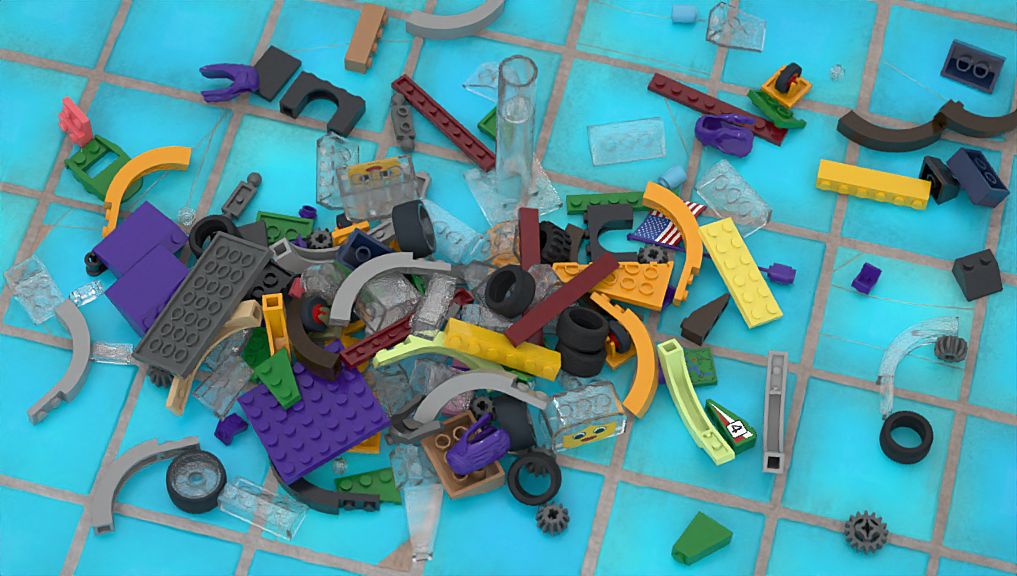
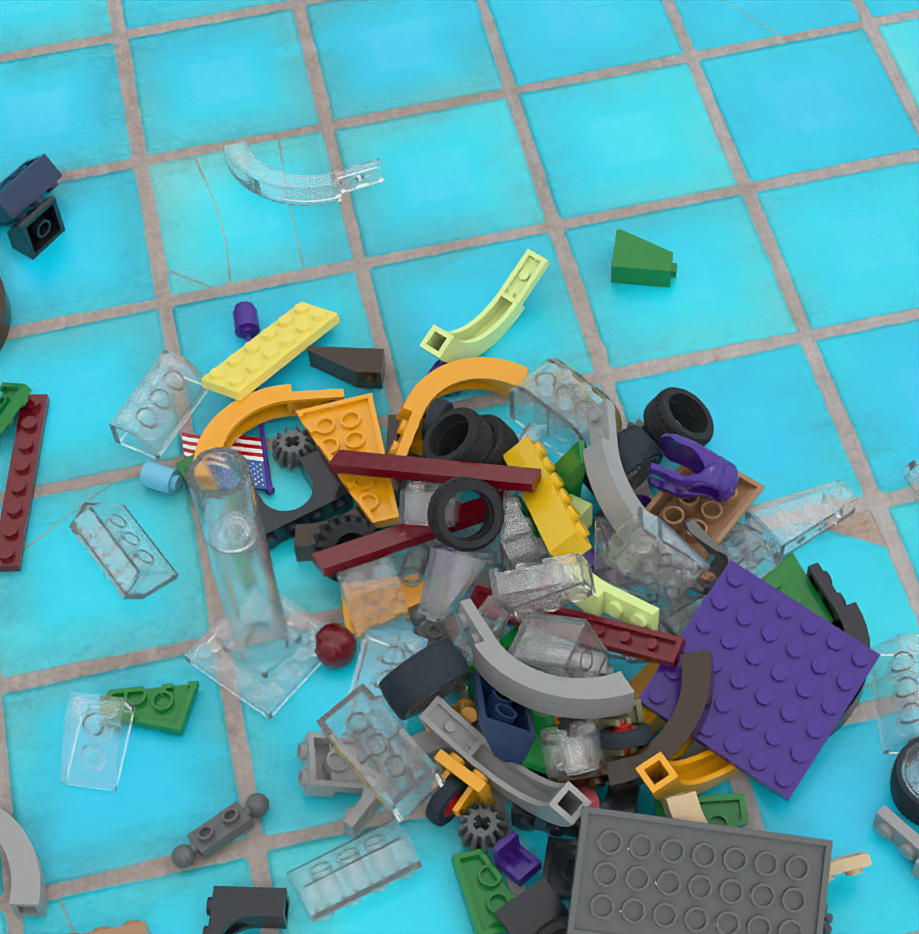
camera: 110 degrees left, 5 degrees down
(224, 385) = (788, 811): clear wedge -> none
(230, 427) = (828, 791): dark purple bracket -> none
(279, 378) = (738, 742): green wing -> none
(308, 212) = (441, 873): dark purple plate -> none
(425, 380) = (654, 556): none -> clear slope
(445, 123) = (195, 775): dark red tile -> none
(485, 218) = (335, 645): none -> dark red hair
(550, 524) = (712, 394): dark grey gear -> none
(700, 367) = (412, 358): tile -> none
(725, 136) = (66, 444): dark purple hair -> none
(731, 427) = (484, 283): green slope -> none
(774, 412) = (462, 253): light grey arch -> none
(866, 279) = (211, 247): dark purple bracket -> none
(873, 184) = (70, 287): yellow brick -> none
(873, 529) = (534, 138): dark grey gear -> none
(910, 420) = (400, 127): black tyre -> none
(950, 348) = (266, 143): dark grey gear -> none
(978, 275) = (149, 160): black slope -> none

